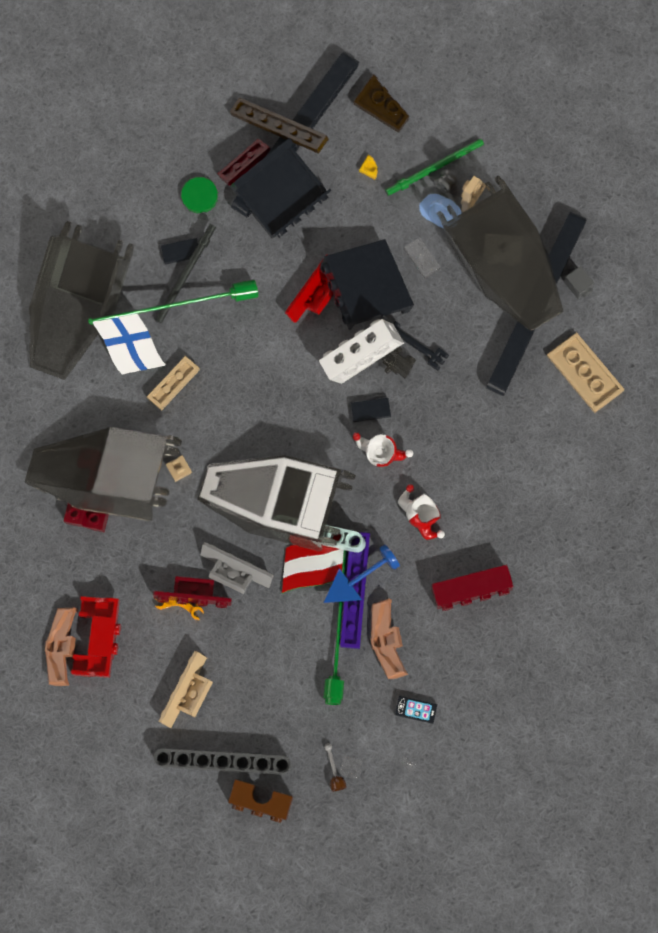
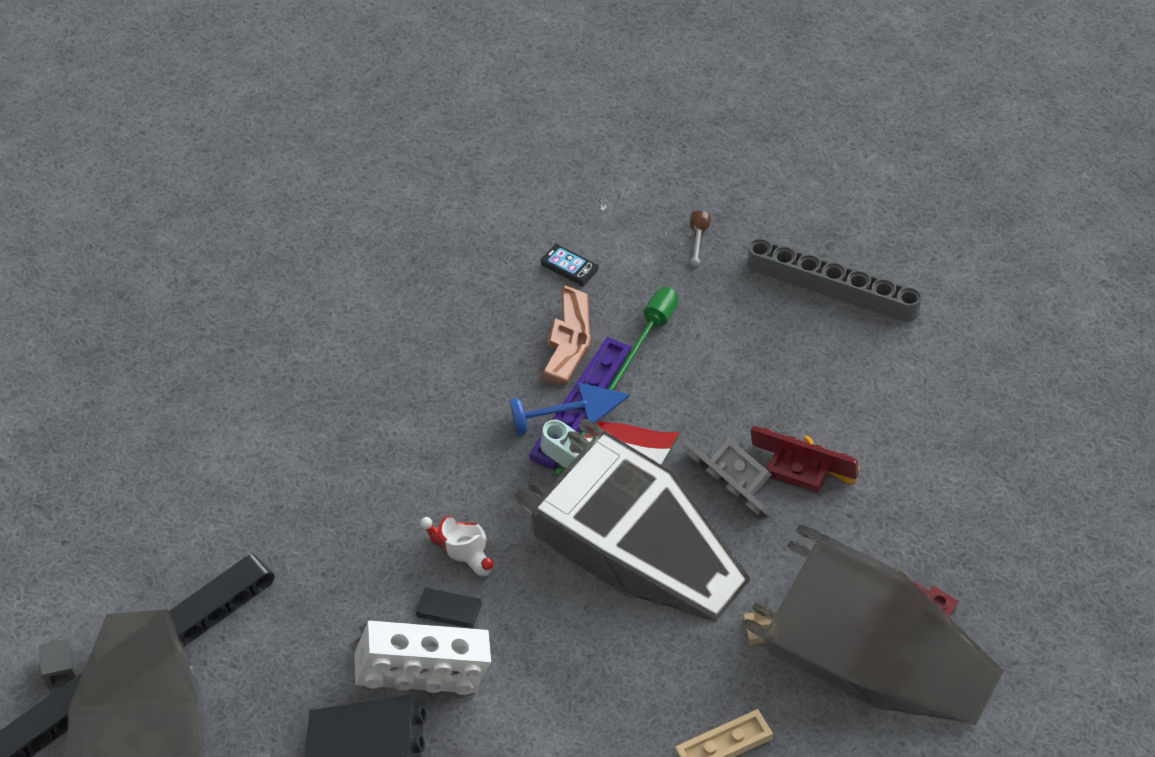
camera: 160 degrees left, 25 degrees down
(60, 646) = (1009, 461): nougat plate -> none
(102, 637) = (945, 449): red bracket -> none
(188, 693) = (845, 357): tan bracket -> none
(277, 807) = (786, 219): reddish brown arch -> none
(421, 513) = (449, 452): white piece -> none
(434, 356) = (322, 647): black hinge -> none
(472, 587) = (430, 352): dark red brick -> none
(585, 372) = (130, 553): tan tile -> none

